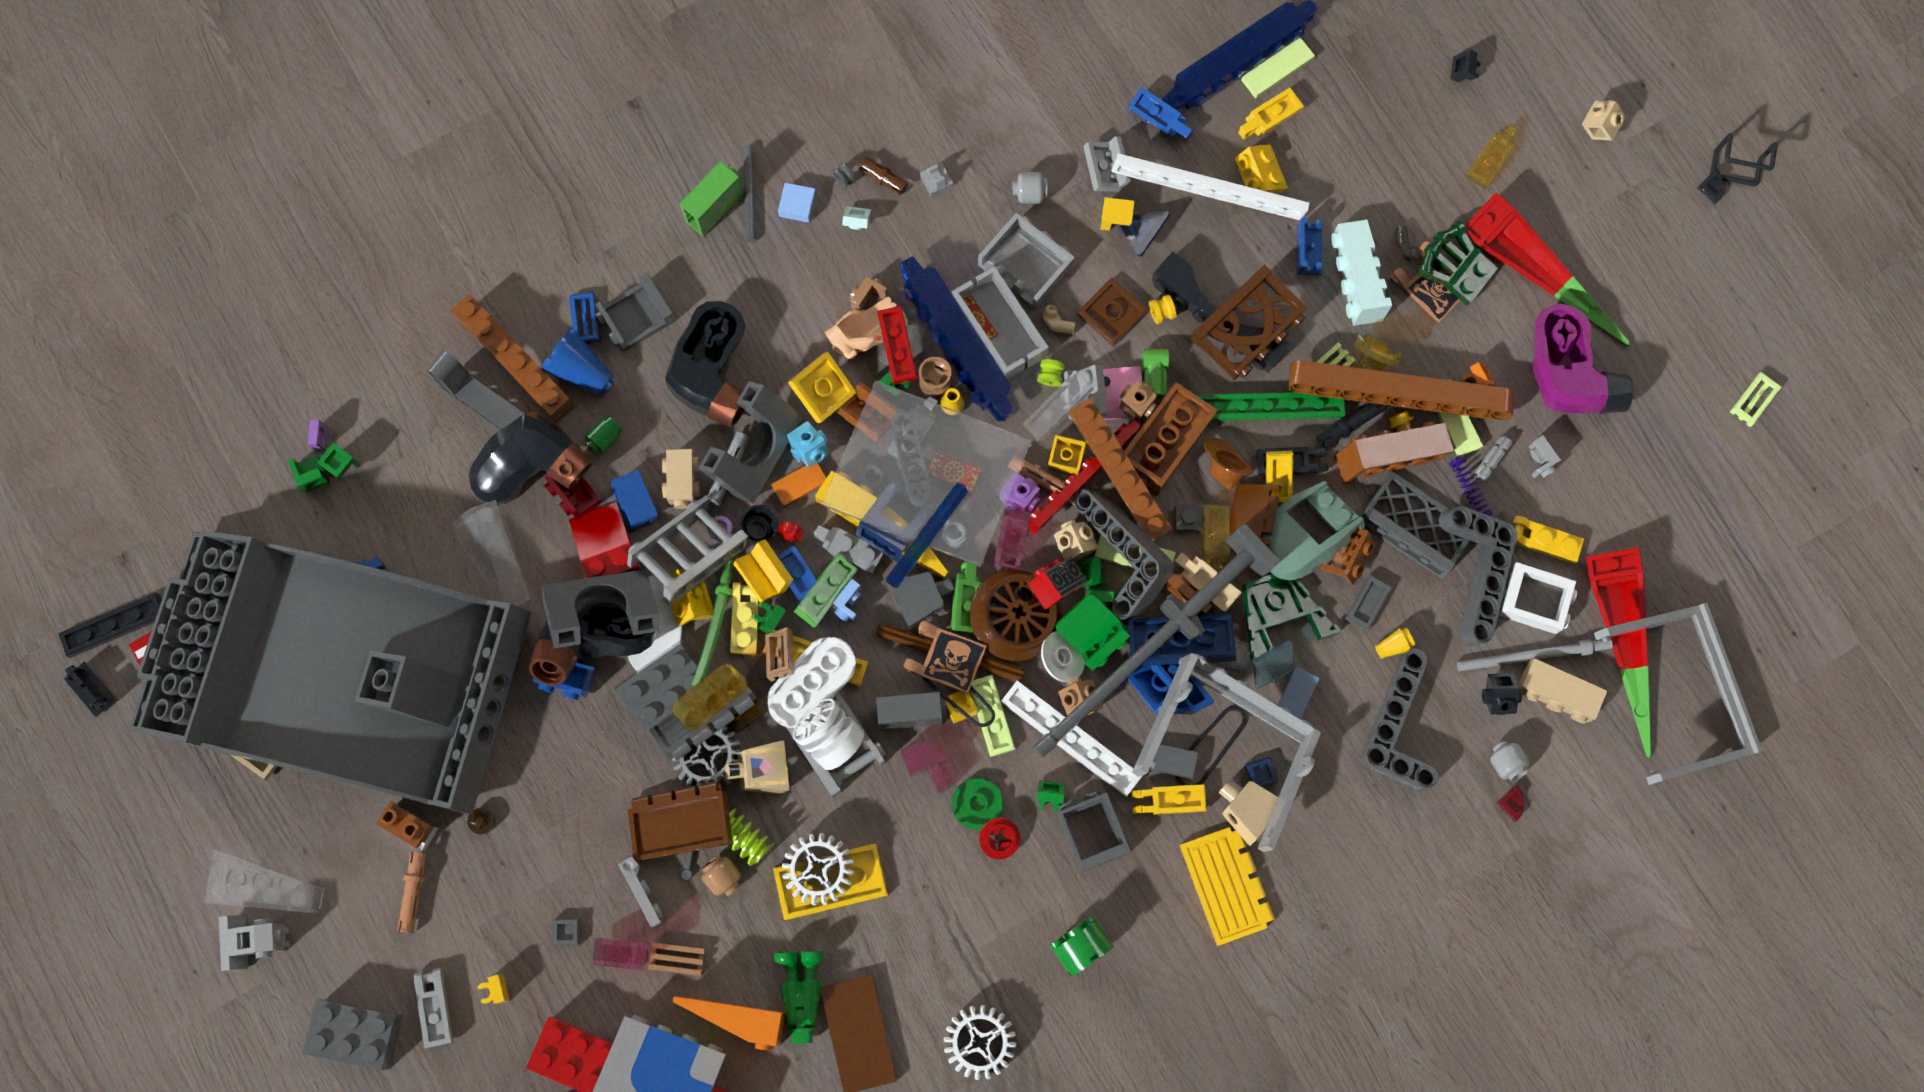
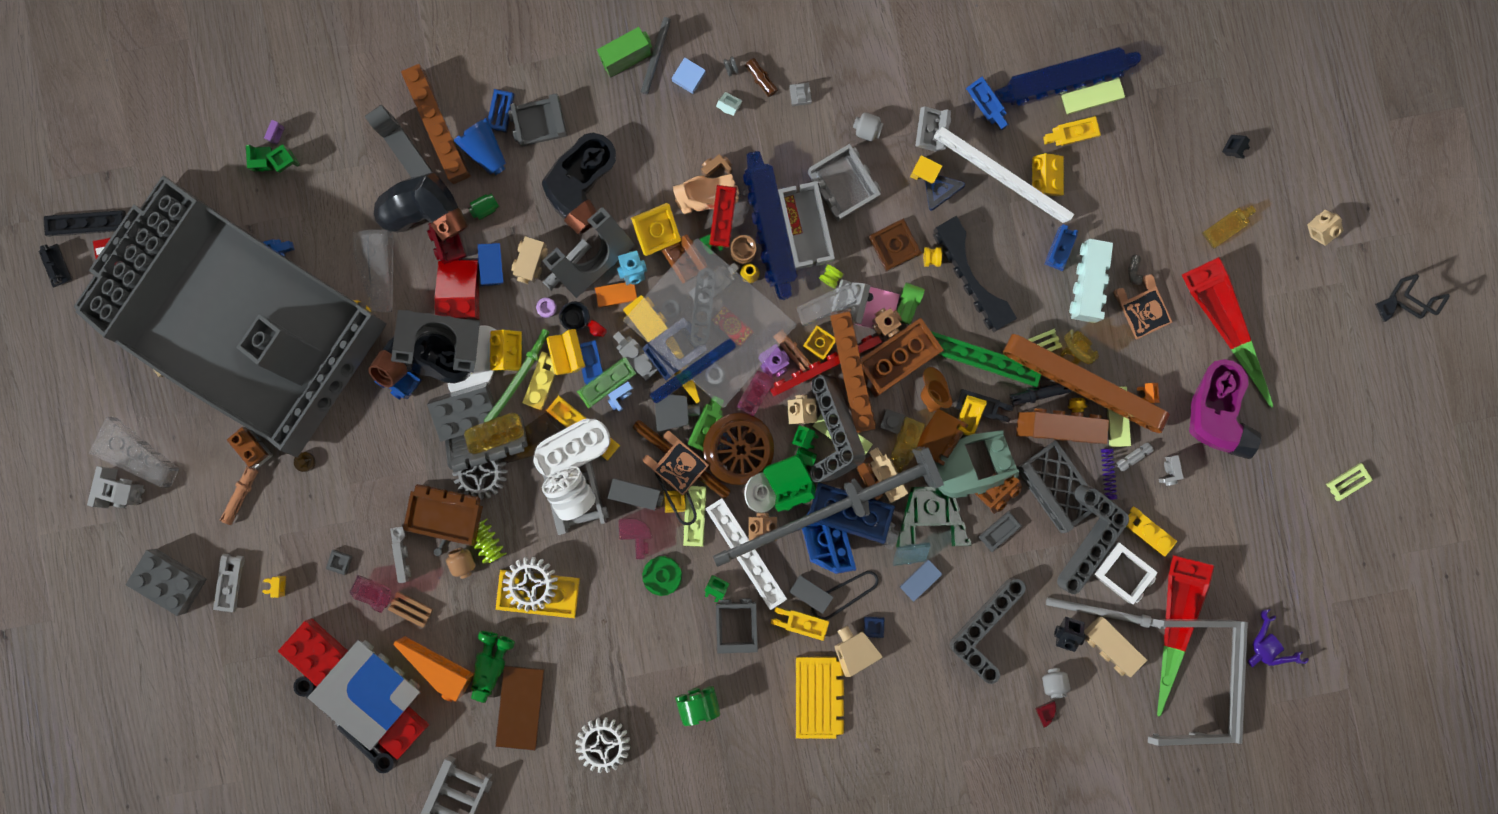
camera: 20 degrees right, 10 degrees up
(693, 573) = (513, 337): light grey fence -> none
(761, 769) = (514, 497): tan torso -> none
(771, 617) = (560, 388): green tile -> none
(784, 652) = (559, 419): medium nougat tile -> none
(1005, 848) = (669, 615): red gear -> none
(1054, 321) = (848, 237): tan arm -> none
(1057, 581) = (777, 438): brick -> none
(1251, 289) = (1004, 268): reddish brown fence -> none
(1255, 703) = (888, 580): light grey piece -> none
(1396, 643) = (1007, 569): yellow cone -> none
(1471, 272) = (1174, 311): dark green plate -> none
(1746, 624) = (1269, 647): none -> dark purple piece

